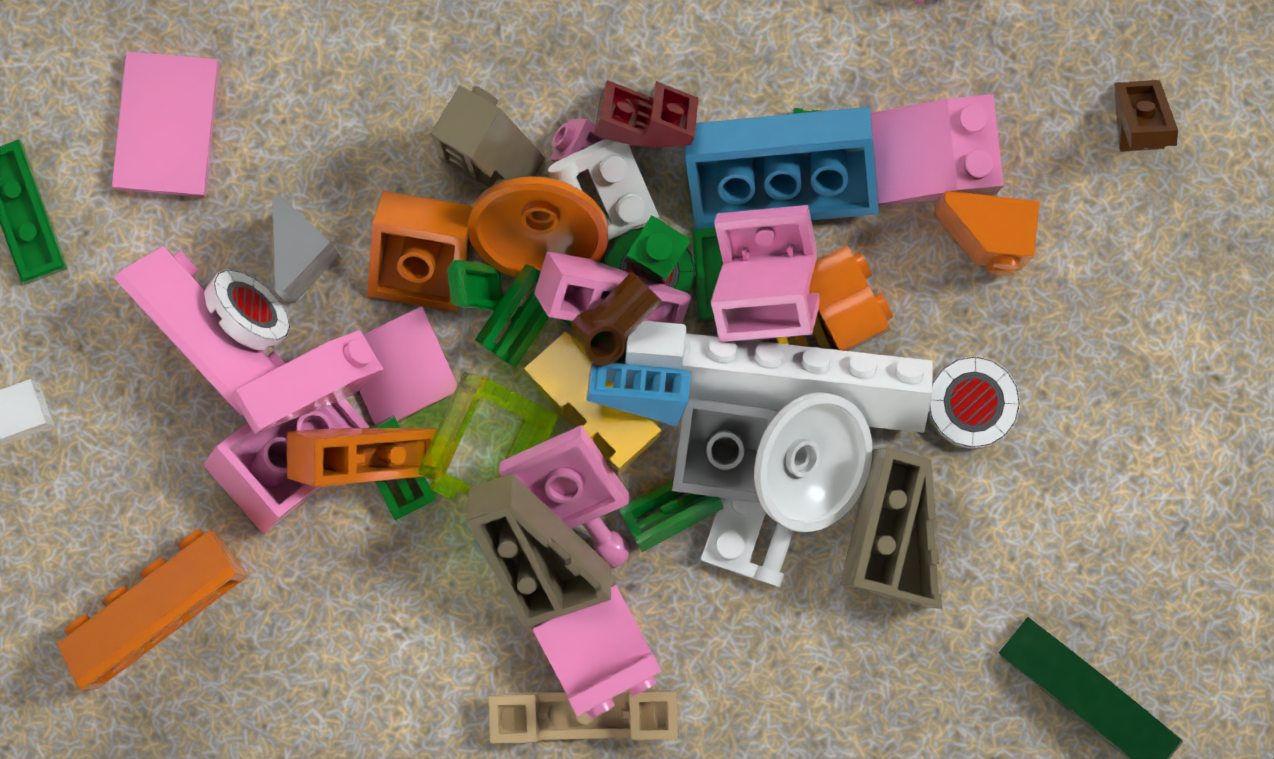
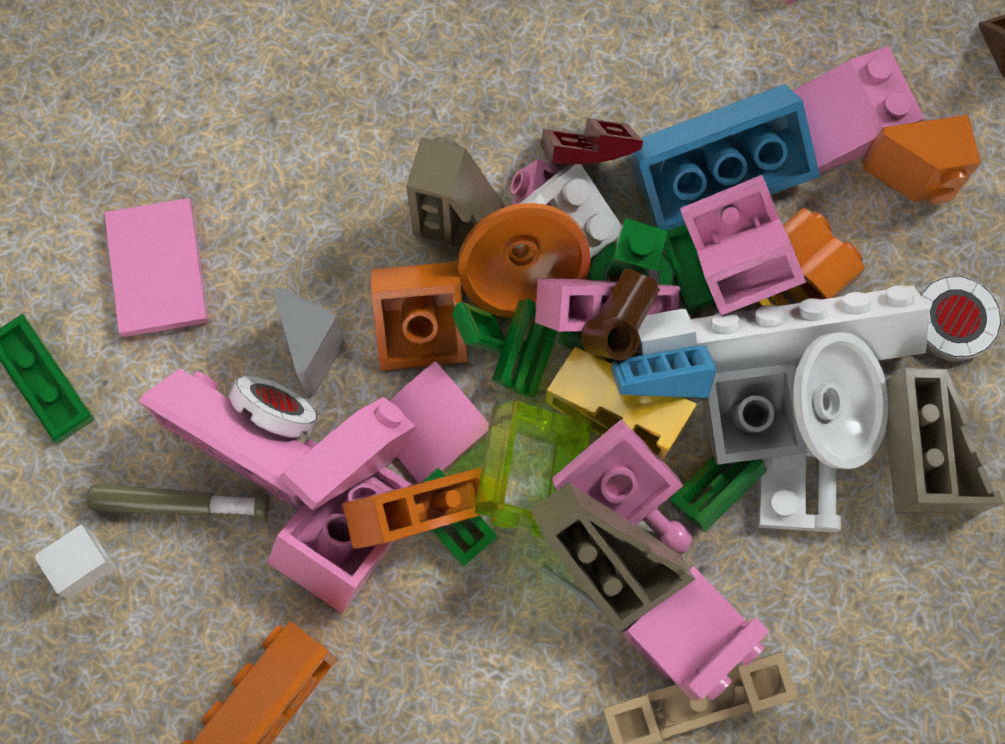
camera: 15 degrees left, 10 degrees down
(122, 375) = (165, 501): none -> olive piece

